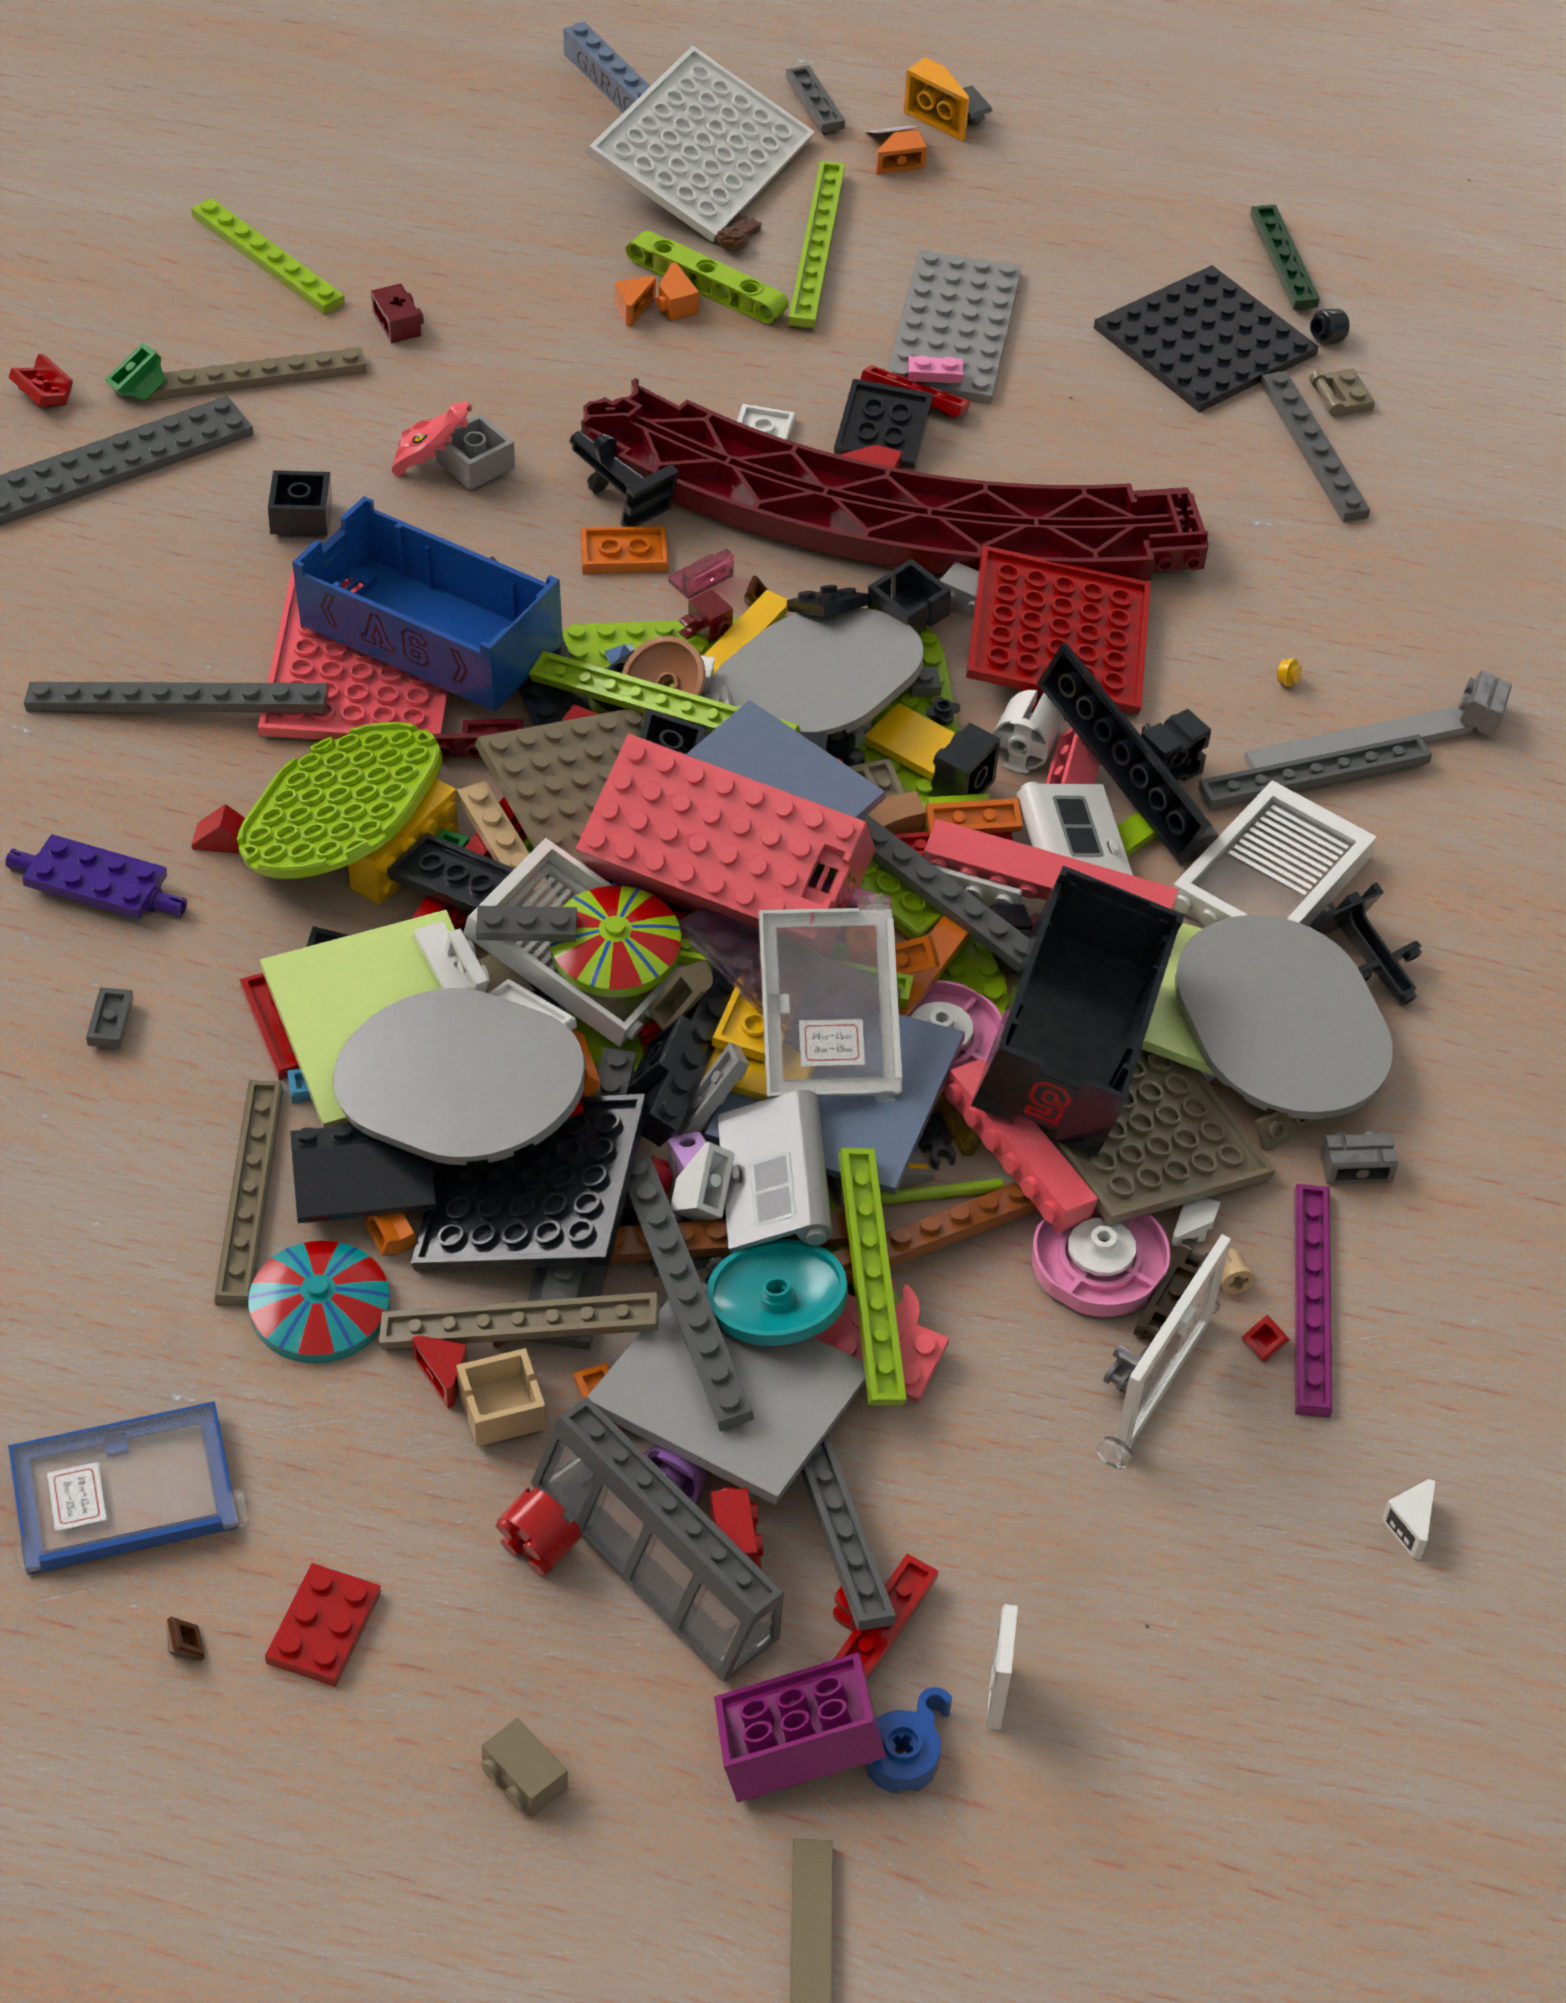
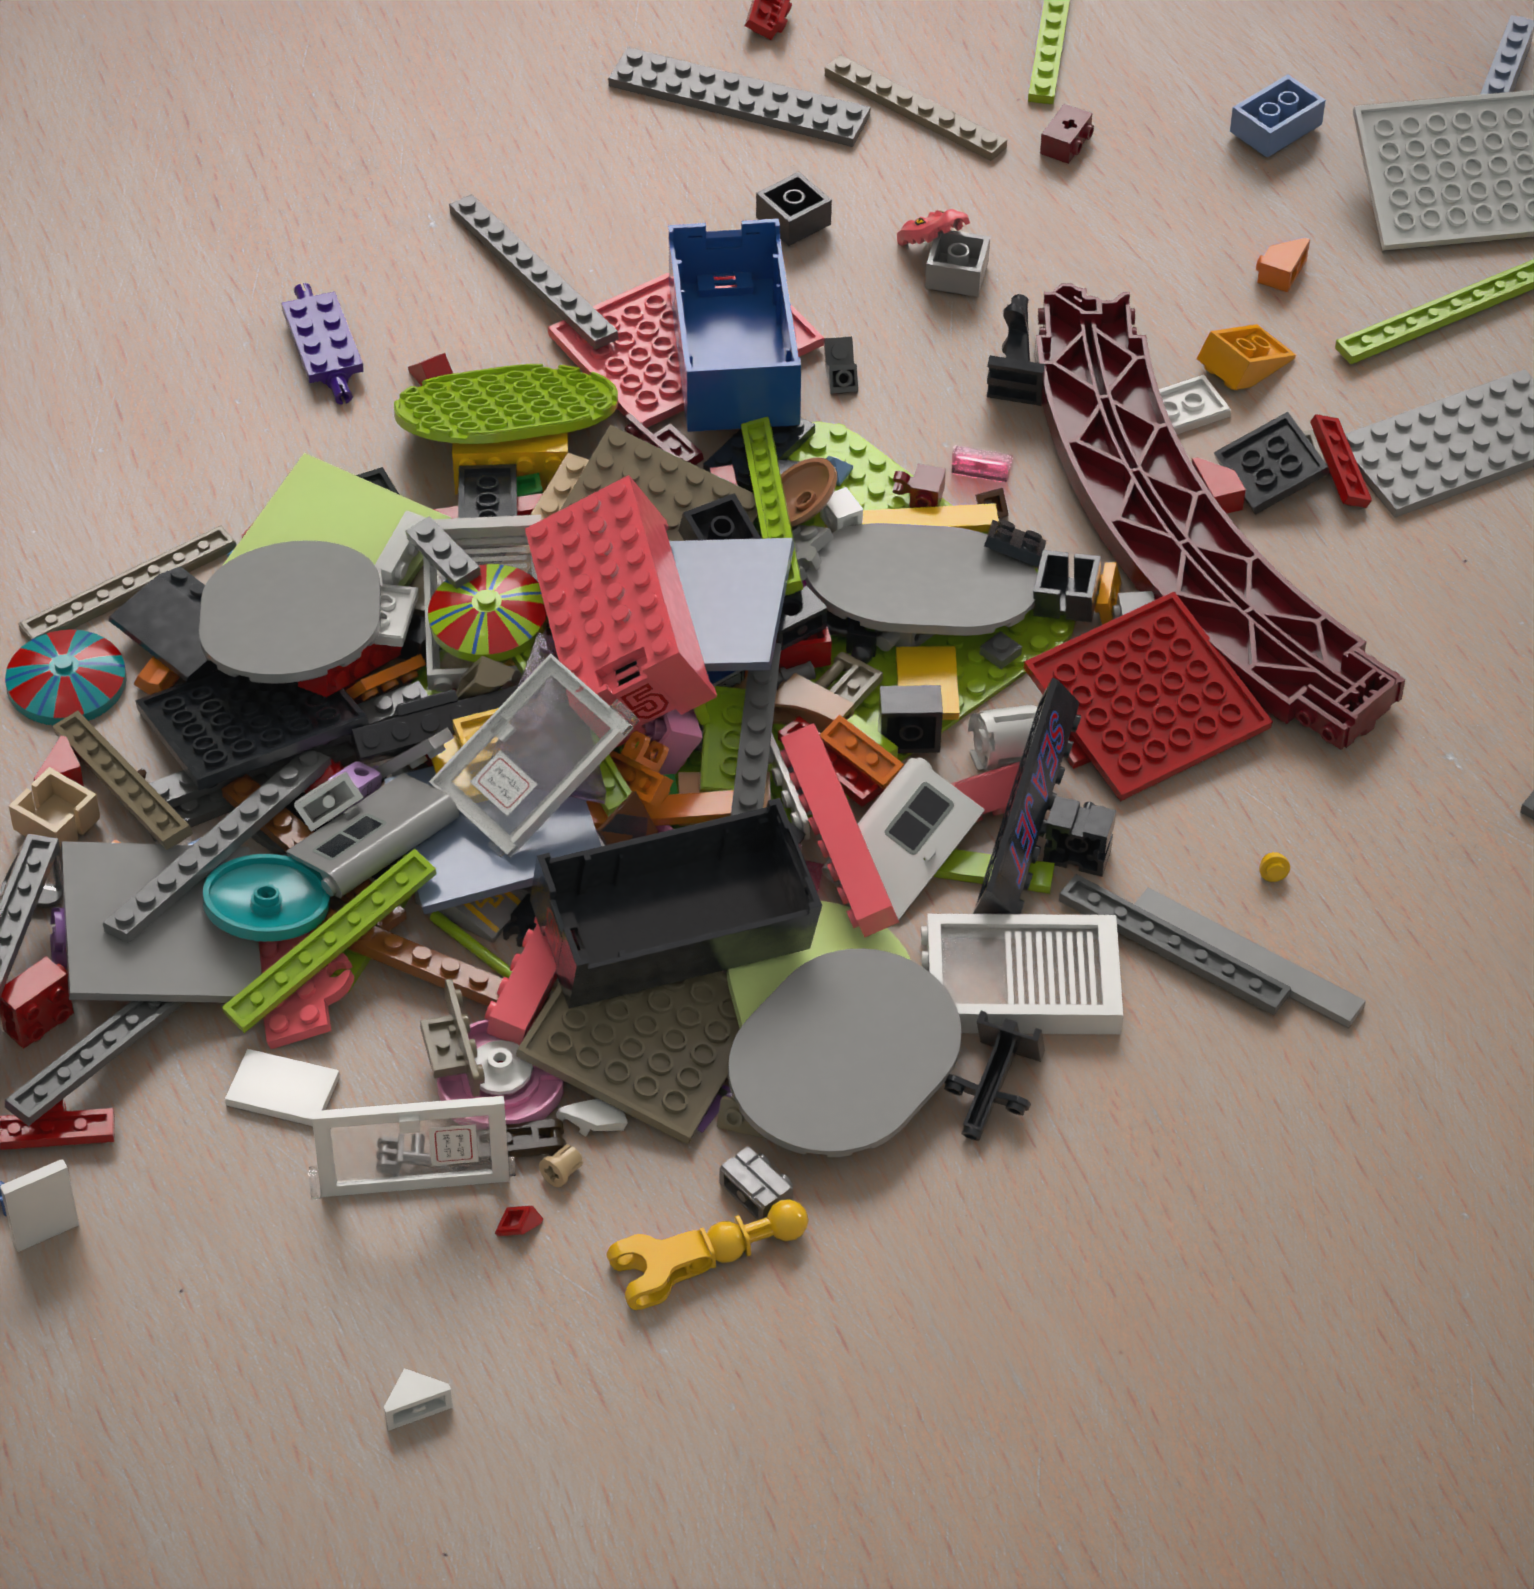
camera: 55 degrees right, 0 degrees up
(110, 1017) = (207, 424): dark grey plate -> none
(138, 374) = (830, 50): green slope -> none
(519, 199) = (1277, 115): none -> medium blue brick
(624, 549) = (960, 406): orange tile -> none
(634, 297) = (1246, 244): orange slope -> none
(709, 277) = (1327, 270): lime beam -> none
(737, 235) = (1400, 258): reddish brown piece -> none
(750, 373) = (1243, 355): none -> light orange slope
(935, 369) = (1374, 456): bright pink plate -> none
(942, 711) = (977, 678): black plate -> none
(953, 1006) = (627, 822): none -> piece
(977, 1418) = (281, 1087): none -> white tile
(1058, 1258) = (448, 1042): none -> dark tan bracket
(1312, 1301) = (586, 1232): magenta tile -> none
(1405, 1211) = (696, 1251): none -> yellow piece
(1484, 702) = (1377, 1011): flat silver brick -> none

